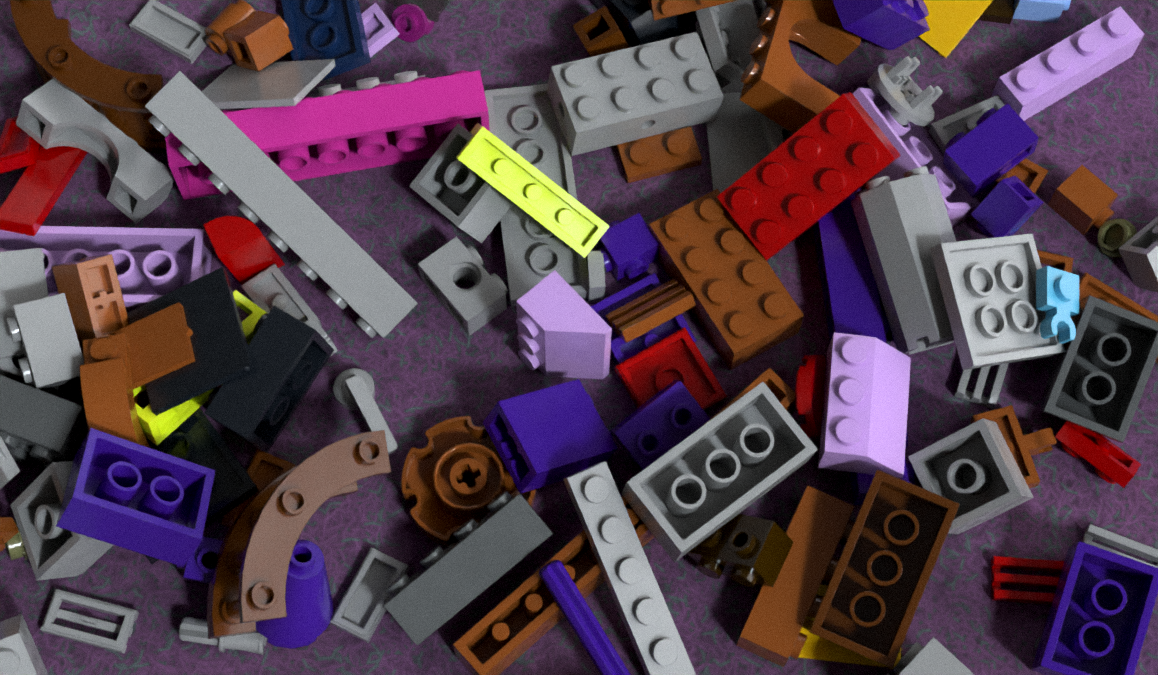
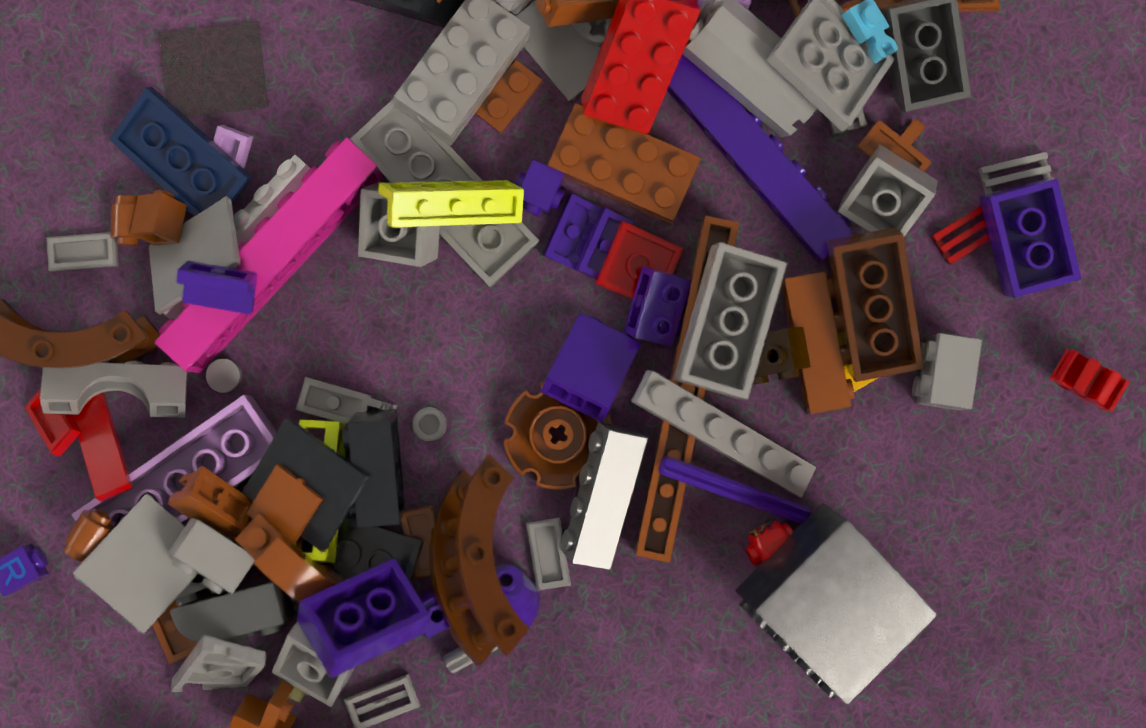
camera: 35 degrees left, 20 degrees up
(200, 210) = (223, 375): none -> light grey tile
(241, 246) = (279, 388): red brick -> none
(258, 110) = (217, 286): none -> dark purple panel
(281, 205) = (285, 342): light grey brick -> none
(369, 410) = (459, 438): light grey tile -> none
(411, 22) = (253, 120): magenta plate -> none
(470, 306) = (428, 291): light grey brick -> none
(562, 332) = (548, 292): lavender slope -> none
(596, 276) = (535, 226): light grey tile -> none
(600, 33) = (407, 38): reddish brown brick -> none
(650, 310) = (587, 224): dark orange tile -> none
(810, 393) = (746, 210): red tile -> none
(864, 406) = (788, 198): lavender slope -> none
(1110, 461) = (965, 112): red plate -> none

